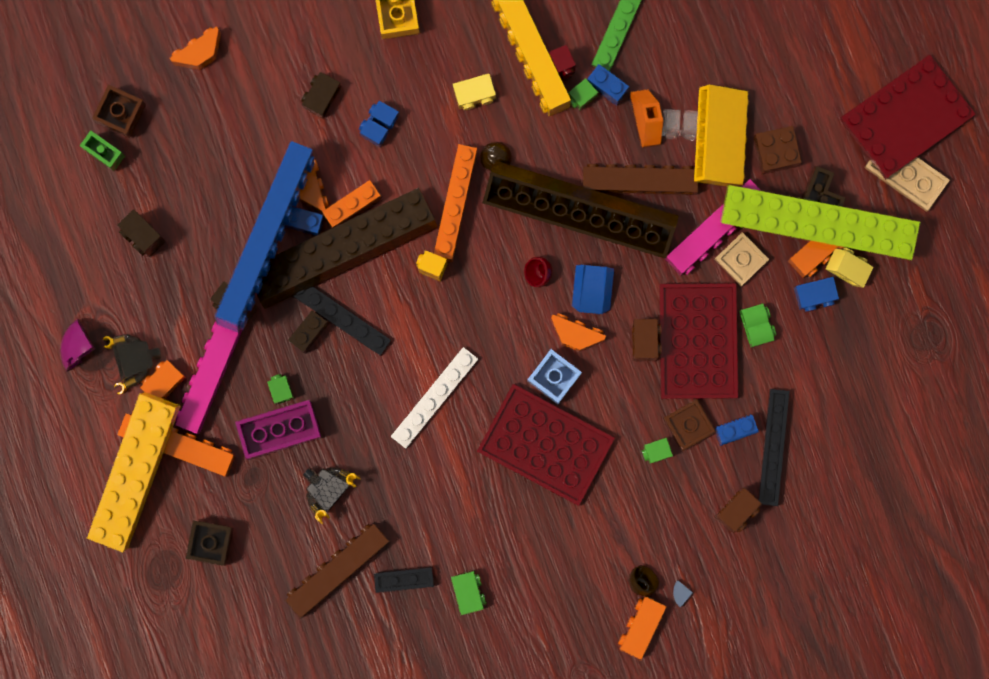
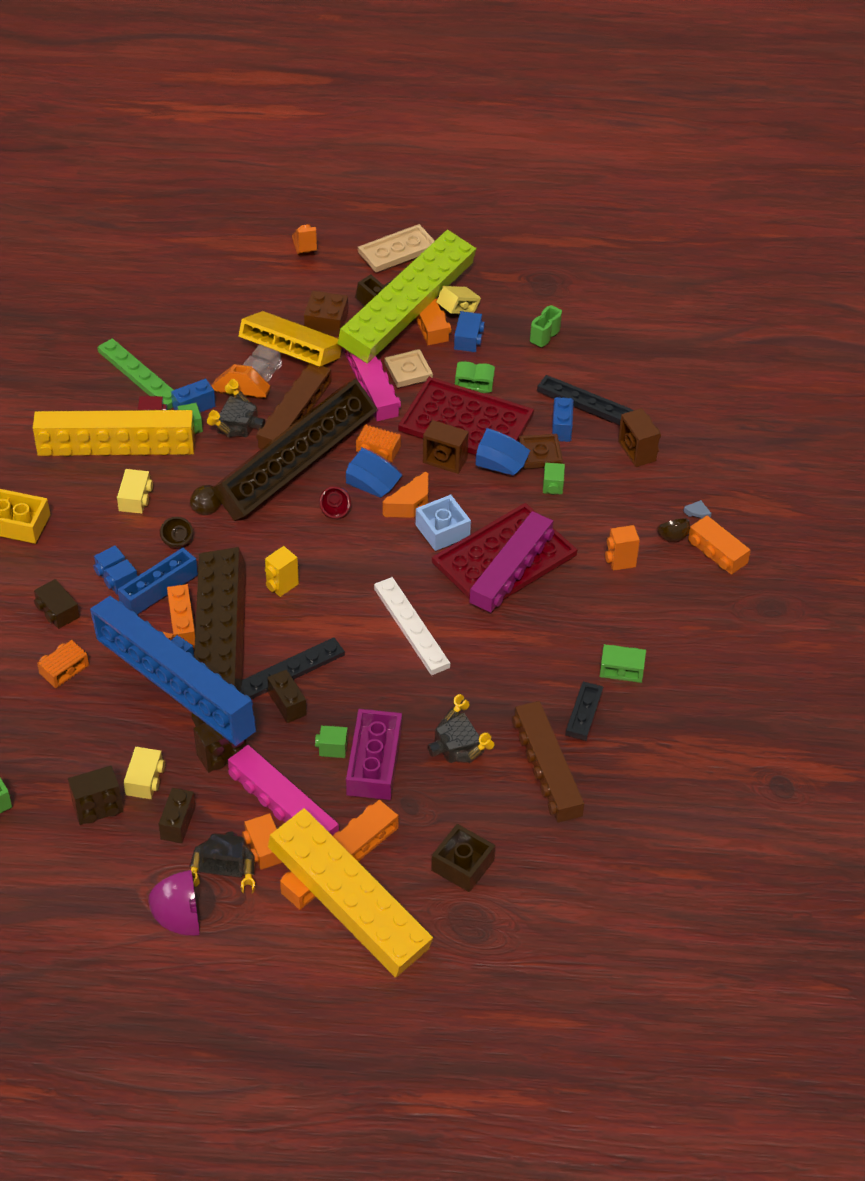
camera: 70 degrees left, 35 degrees down
(155, 303) = (177, 815): none -> dark brown brick
(185, 256) = (144, 773): none -> light yellow brick
(263, 134) = (63, 663): none -> orange brick
(378, 167) = (153, 583): none -> blue brick
(440, 153) = (176, 532): none -> dark brown piece
(455, 202) = (225, 535): orange brick -> none
(531, 457) = (511, 562): none -> magenta brick
(592, 545) = (622, 547): none -> orange brick
(604, 135) = (237, 416): none -> torso
(629, 276) = (379, 441): none -> orange brick
(661, 395) = (501, 452): none -> blue slope
(848, 363) = (546, 326): none -> bright green brick
(871, 80) = (305, 239): none -> orange slope
(907, 116) = (350, 231): dark red plate -> none

